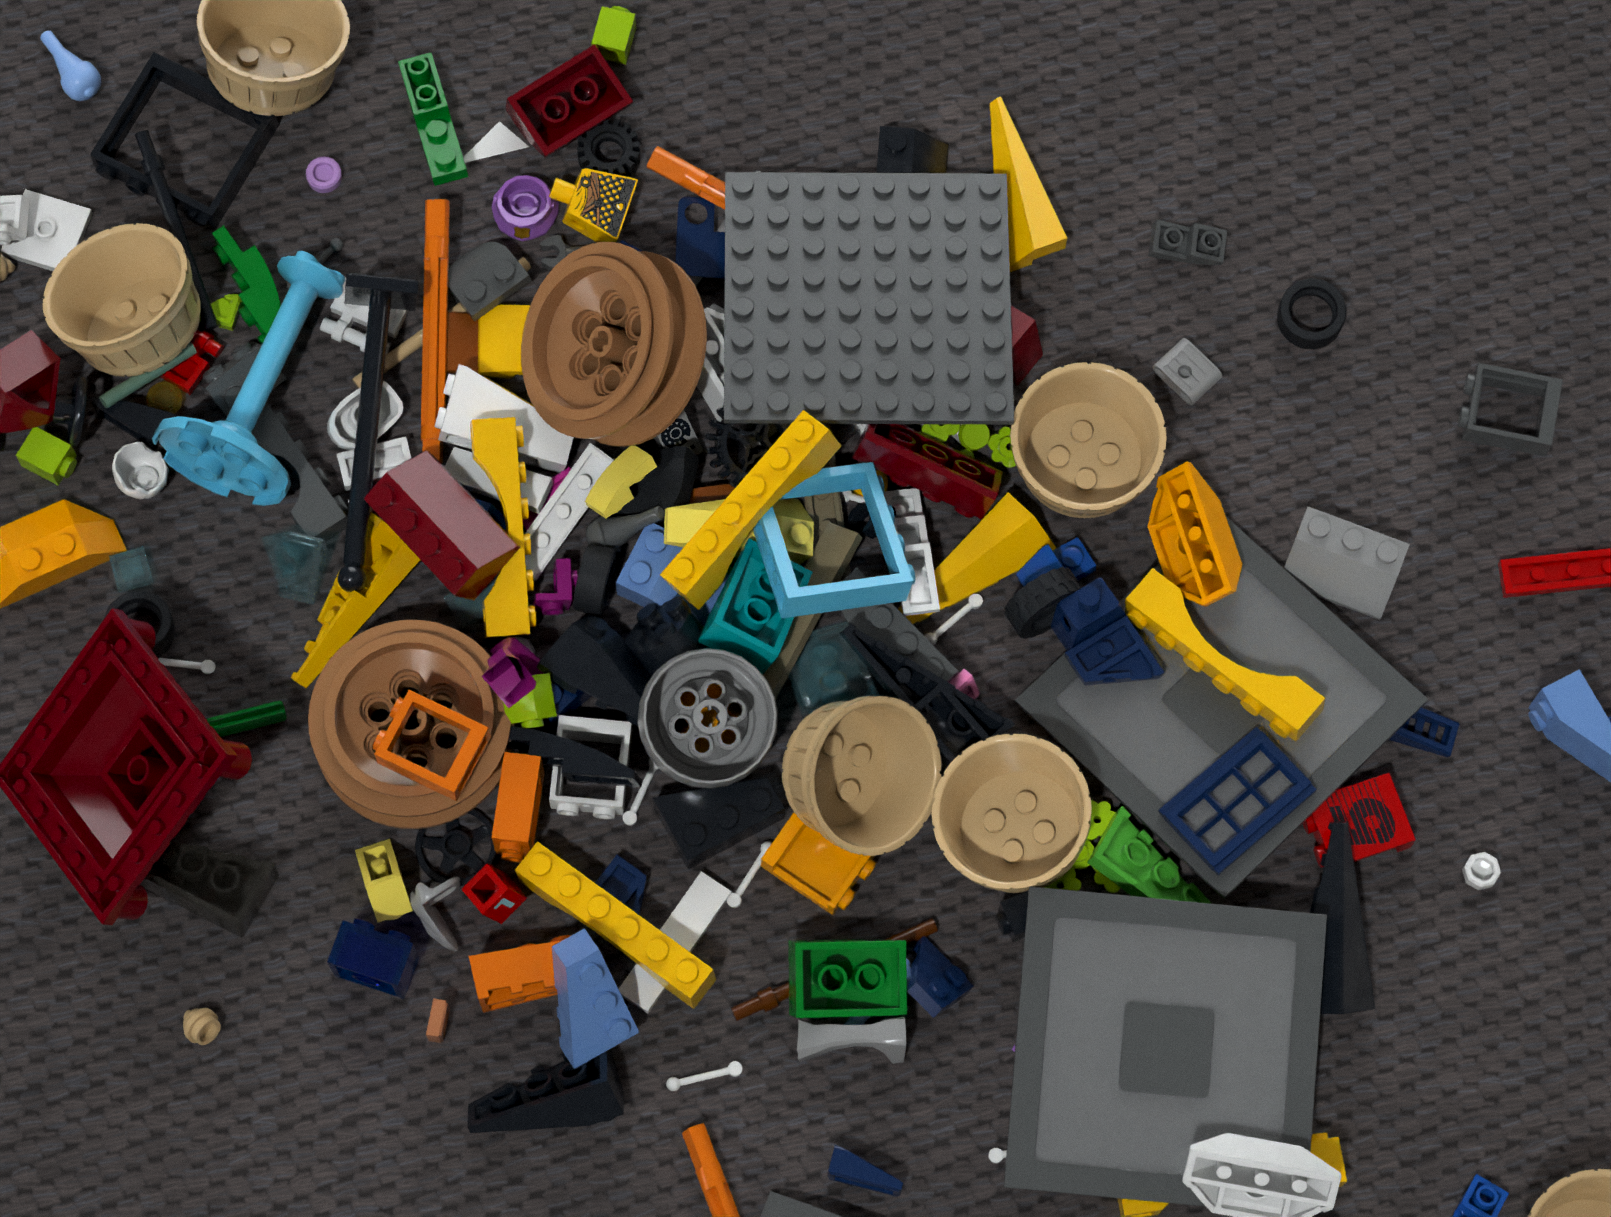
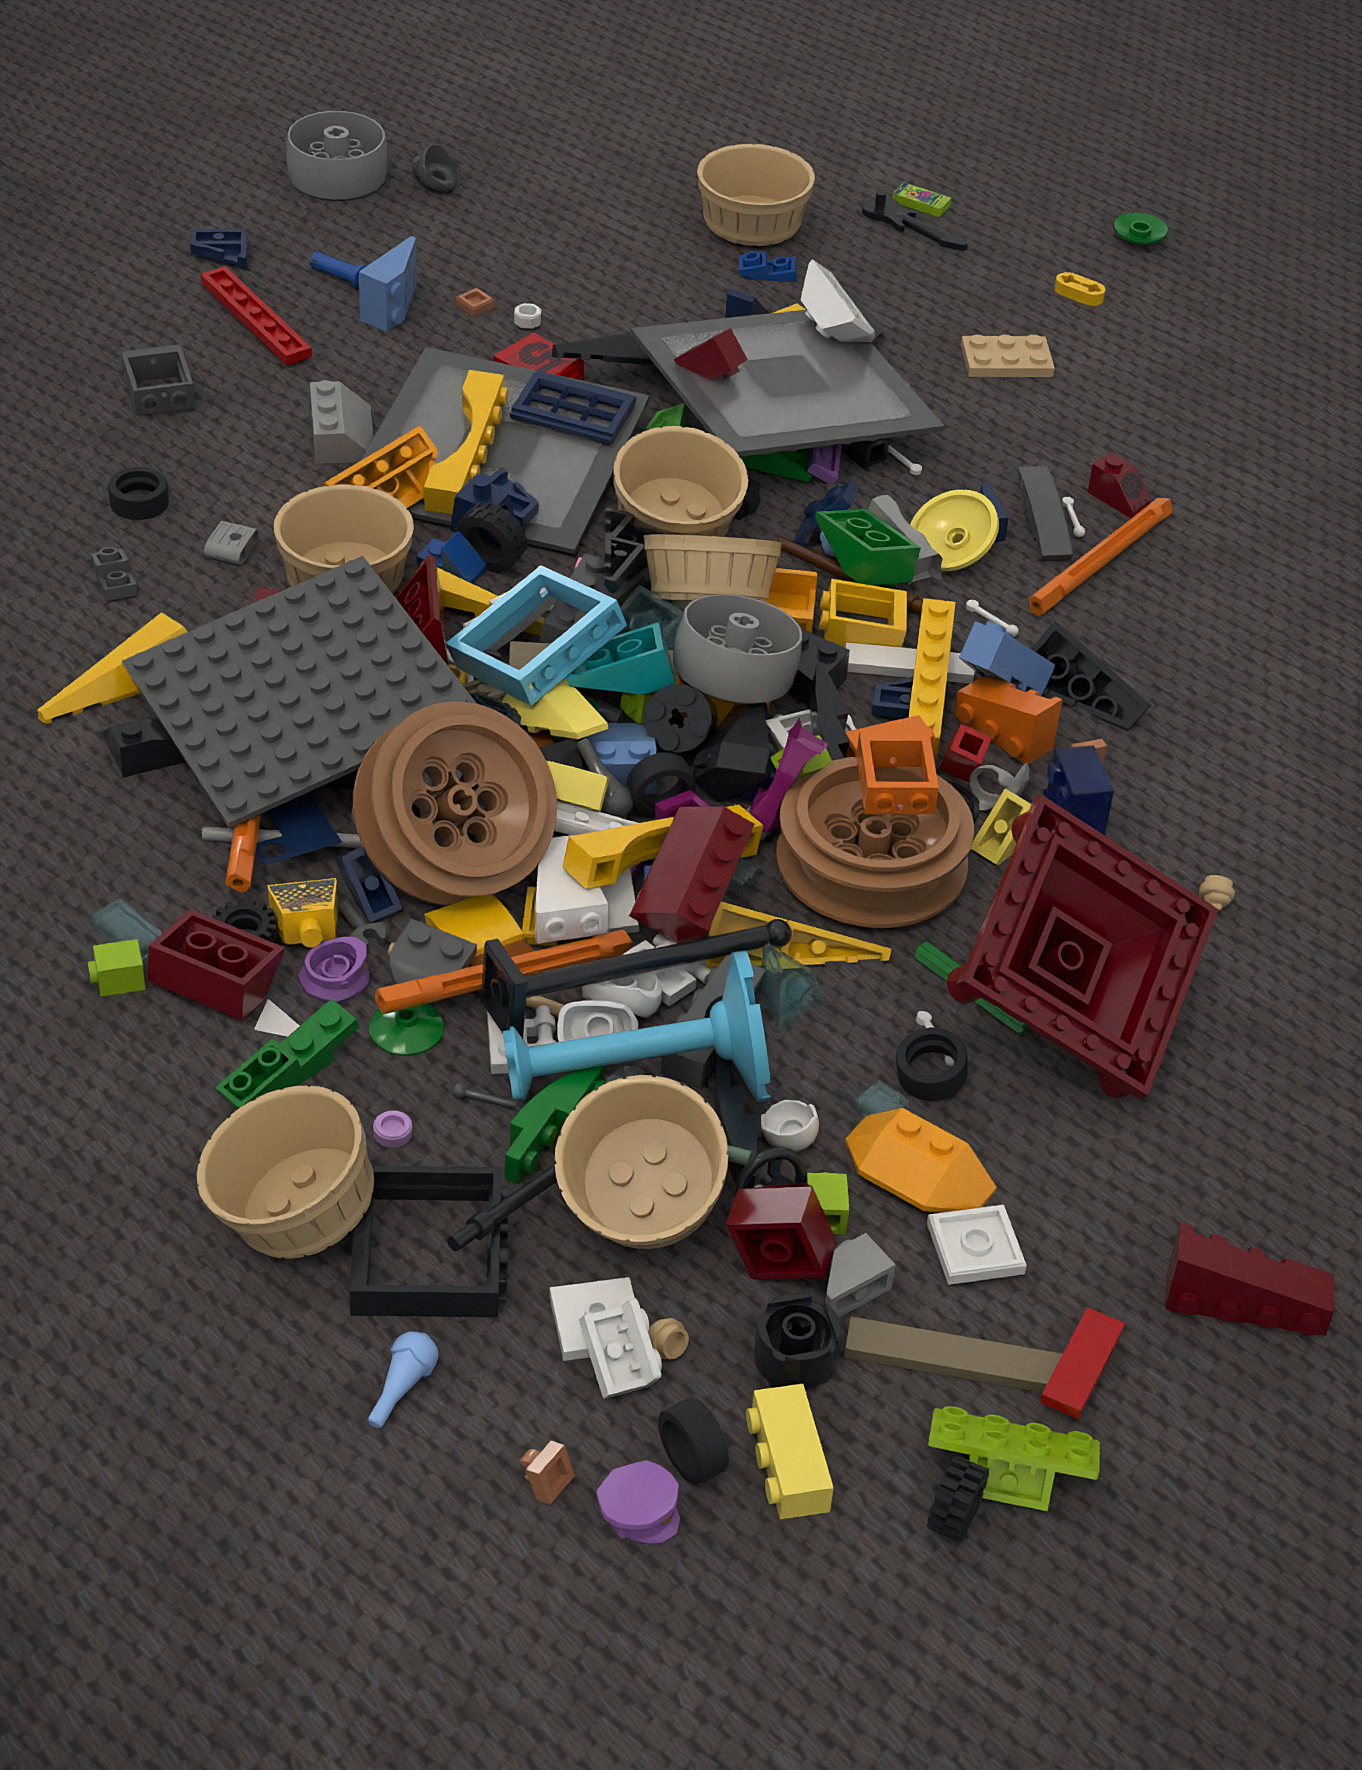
camera: 120 degrees left, 30 degrees down
(329, 373) = (594, 1019): none -> white piece
(413, 238) = (407, 1030): none -> green dish
(667, 66) = (123, 923): none -> clear light blue tile
(707, 556) = (487, 650): yellow arch -> none
(729, 956) = (866, 601): none -> yellow window
(837, 1099) = (955, 518): none -> light yellow dish
(1207, 957) = (714, 356): none -> dark red slope
(1379, 1129) = (741, 304): none -> dark blue slope
(1543, 830) = (475, 302): none -> nougat tile

